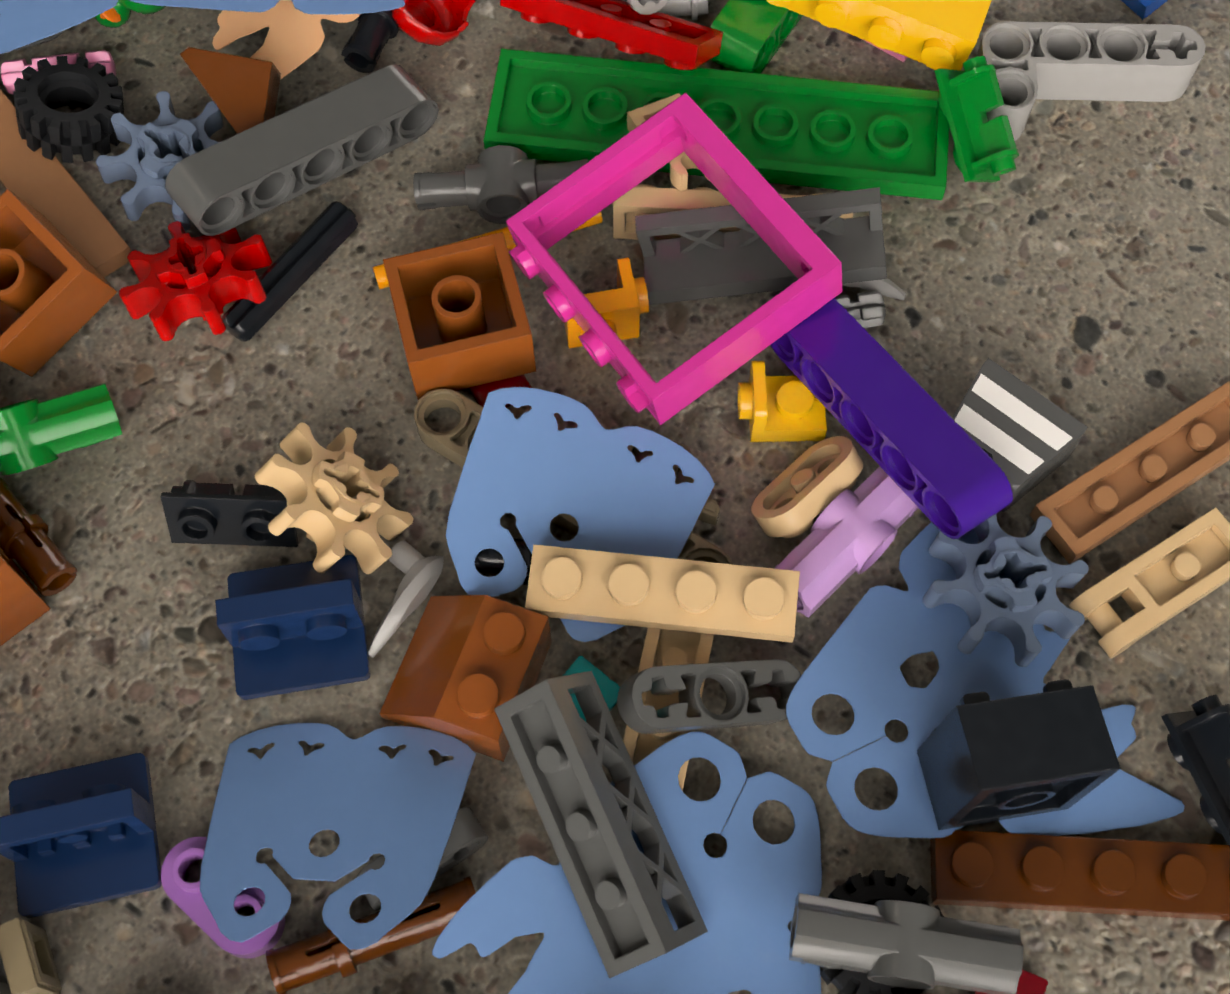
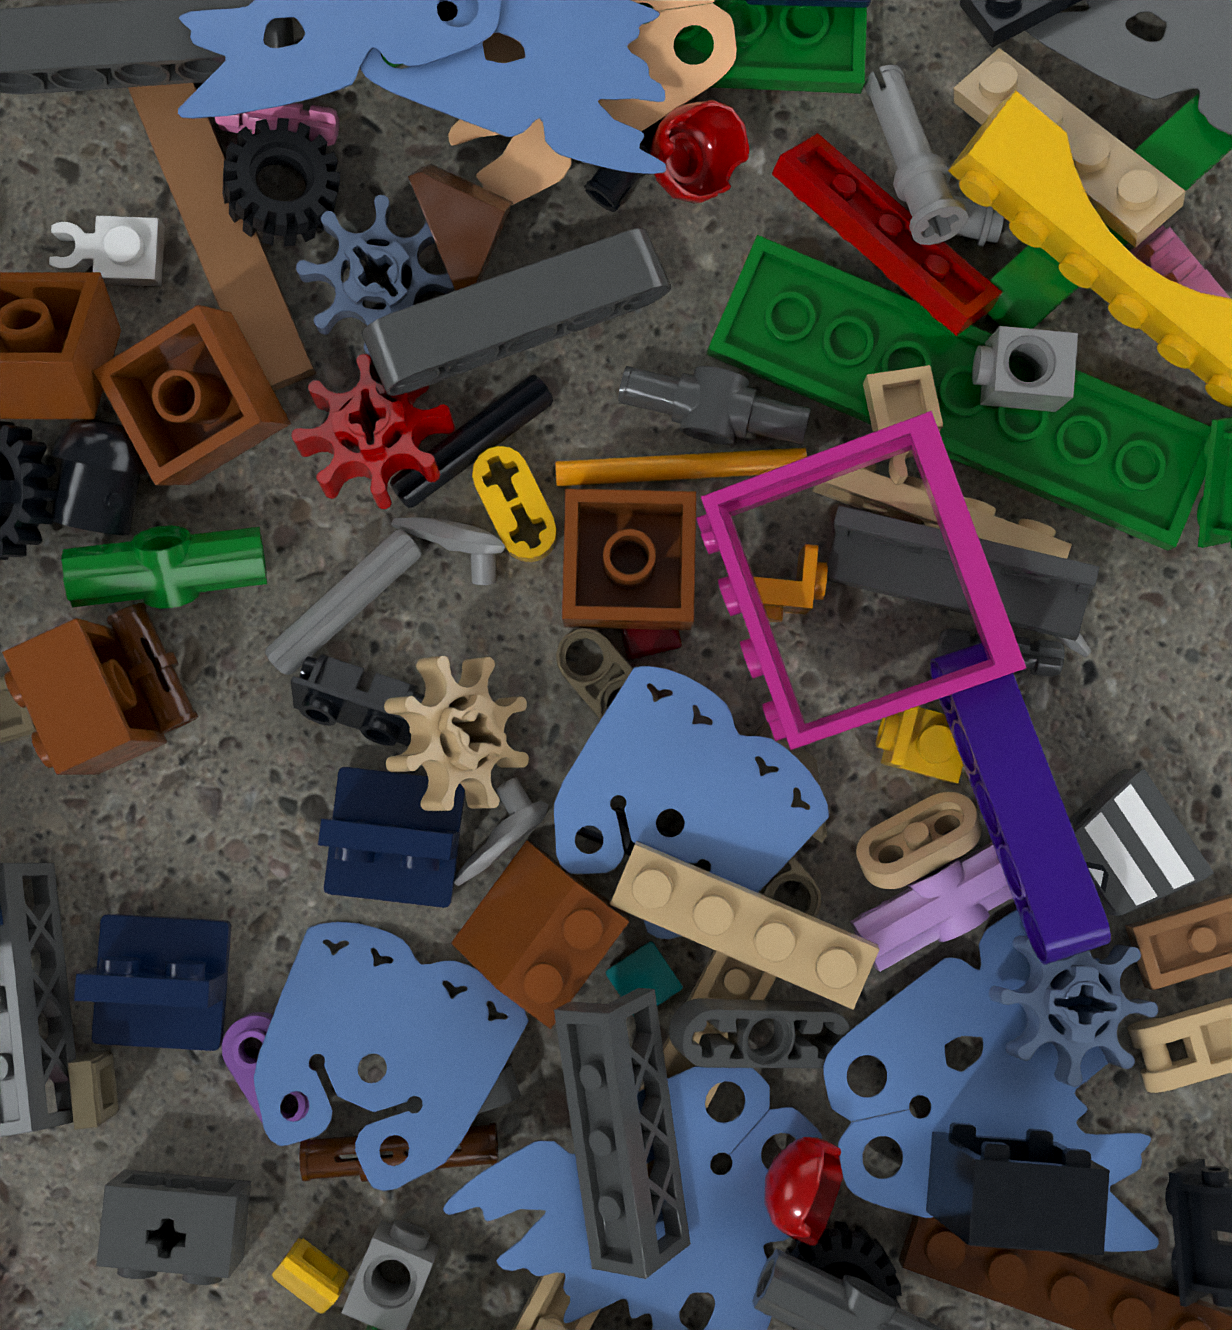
camera: 15 degrees right, 20 degrees up
(200, 431) = (343, 602): none -> light grey axle
(317, 347) = (459, 537): none -> light grey bar
(353, 302) = (528, 497): none -> yellow beam
(763, 76) = (1047, 351): none -> light grey brick
(805, 834) = (803, 1188): none -> red hair

